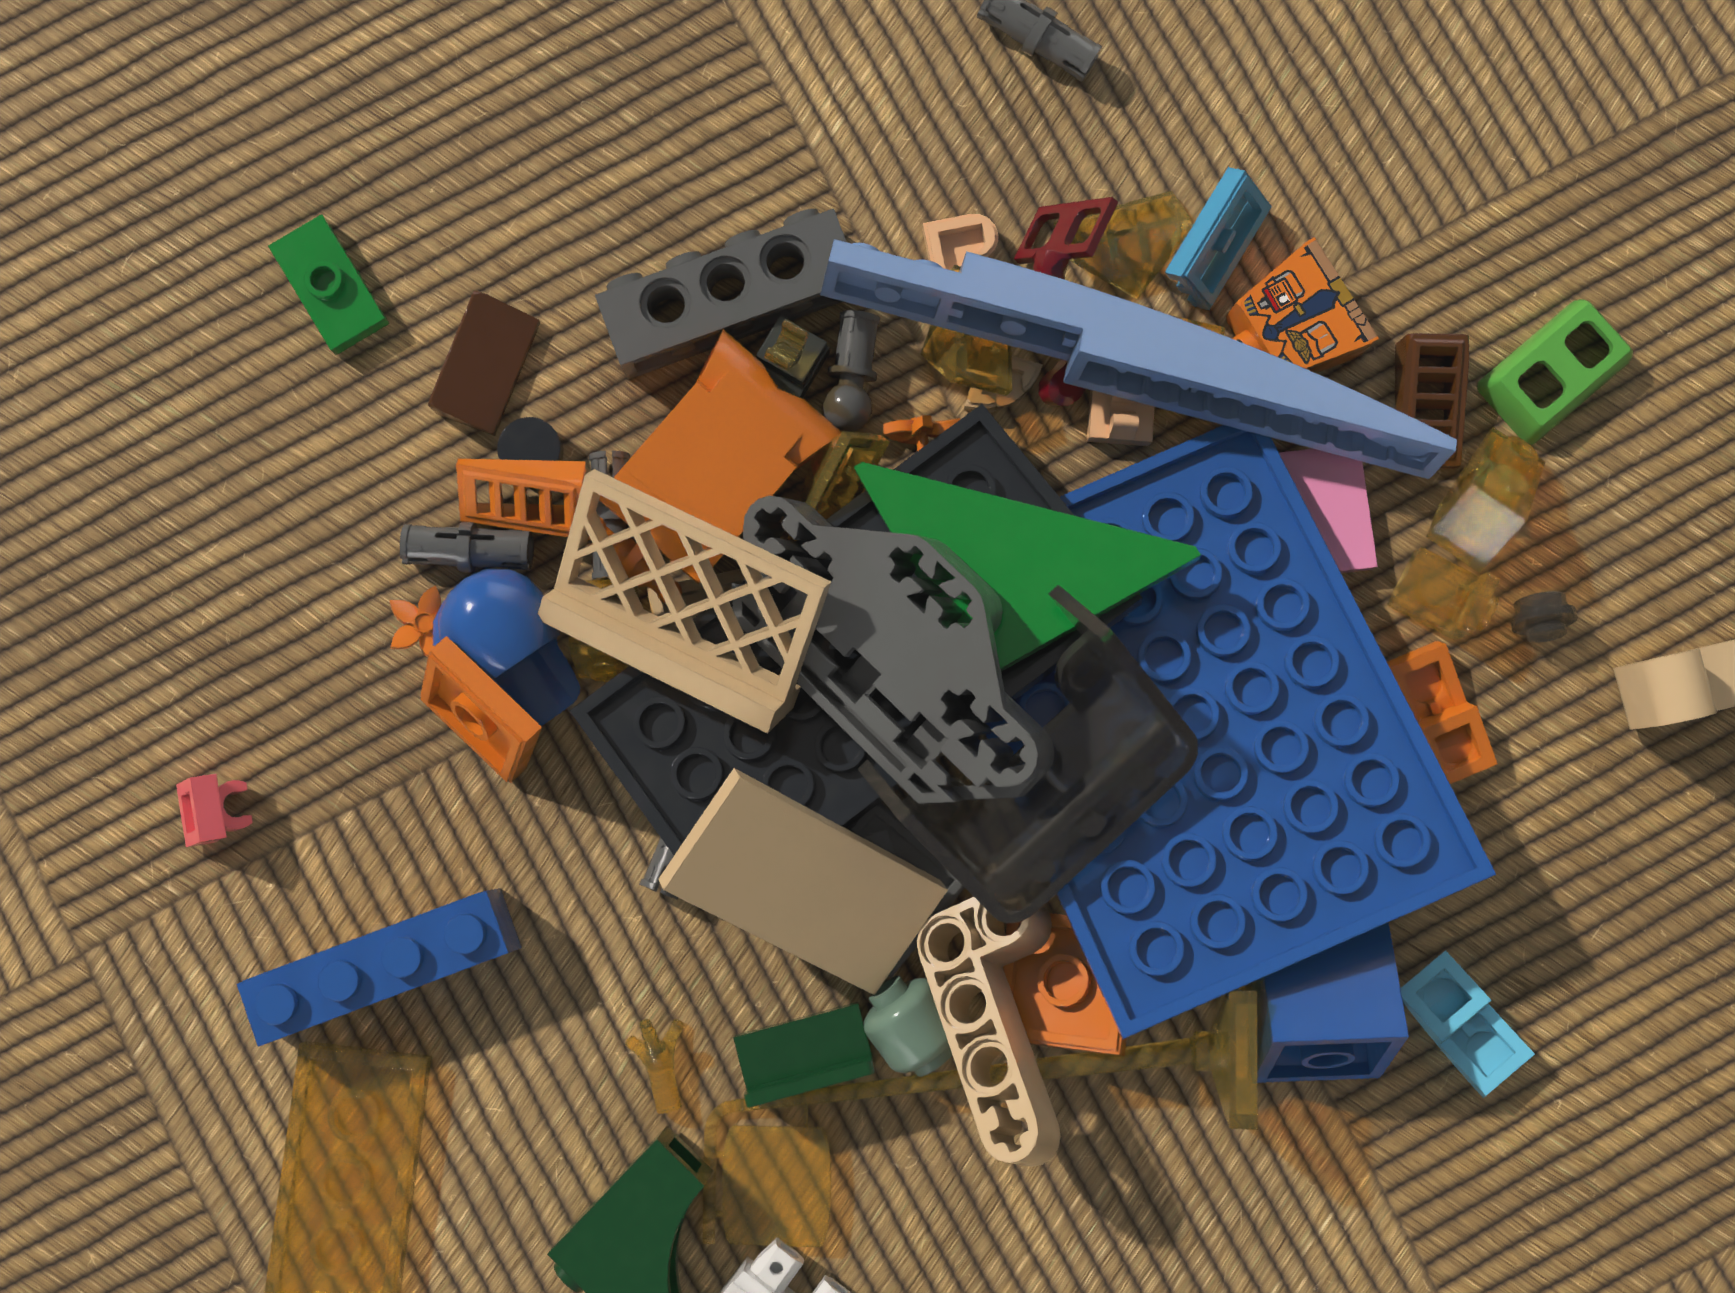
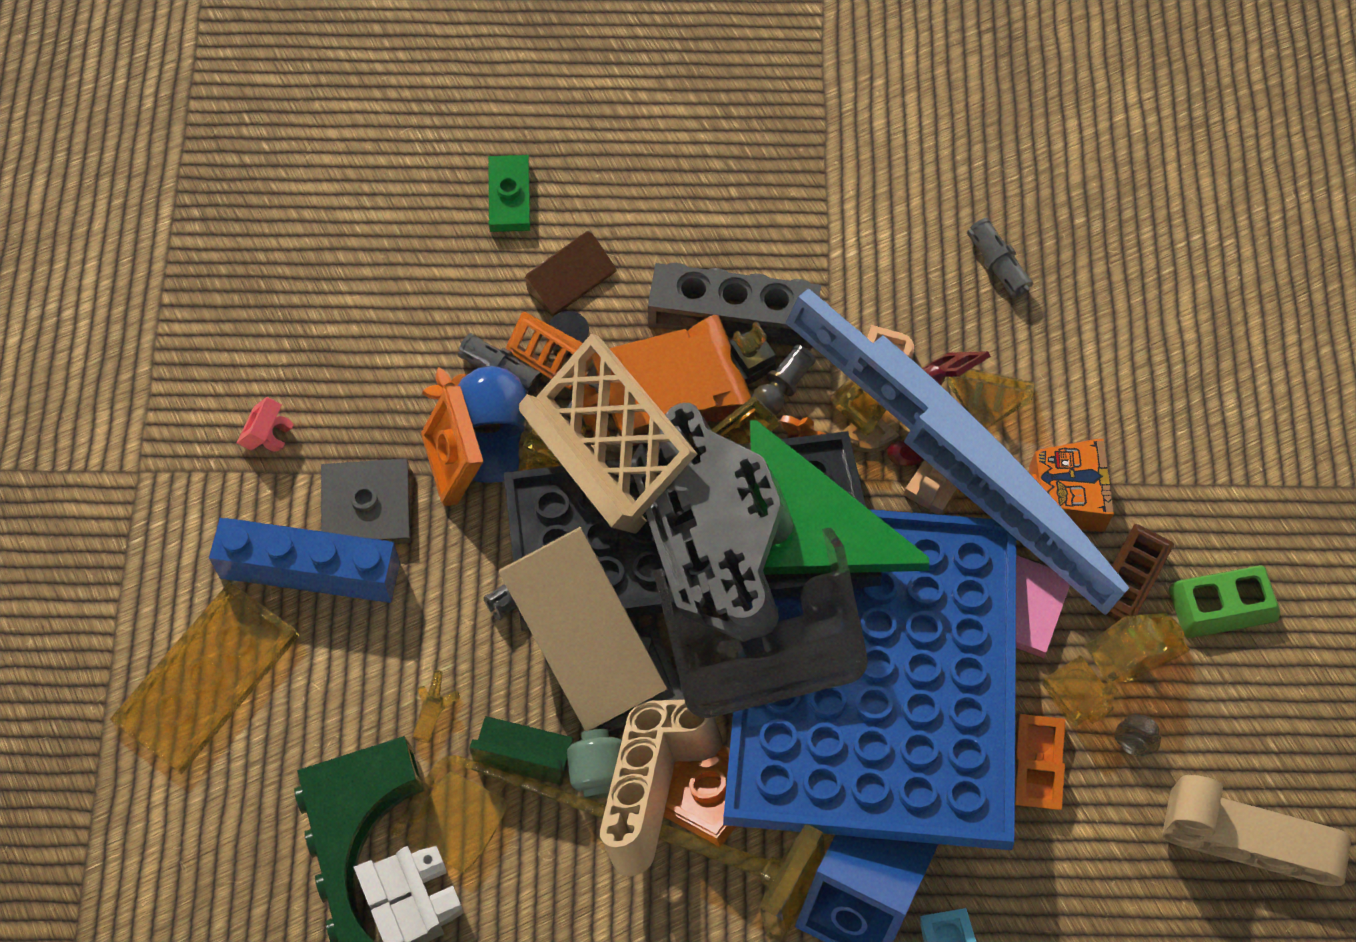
camera: 30 degrees right, 20 degrees down
(408, 837) = (367, 499): none -> dark grey plate
(1218, 238) = (1044, 411): dark azure tile -> none

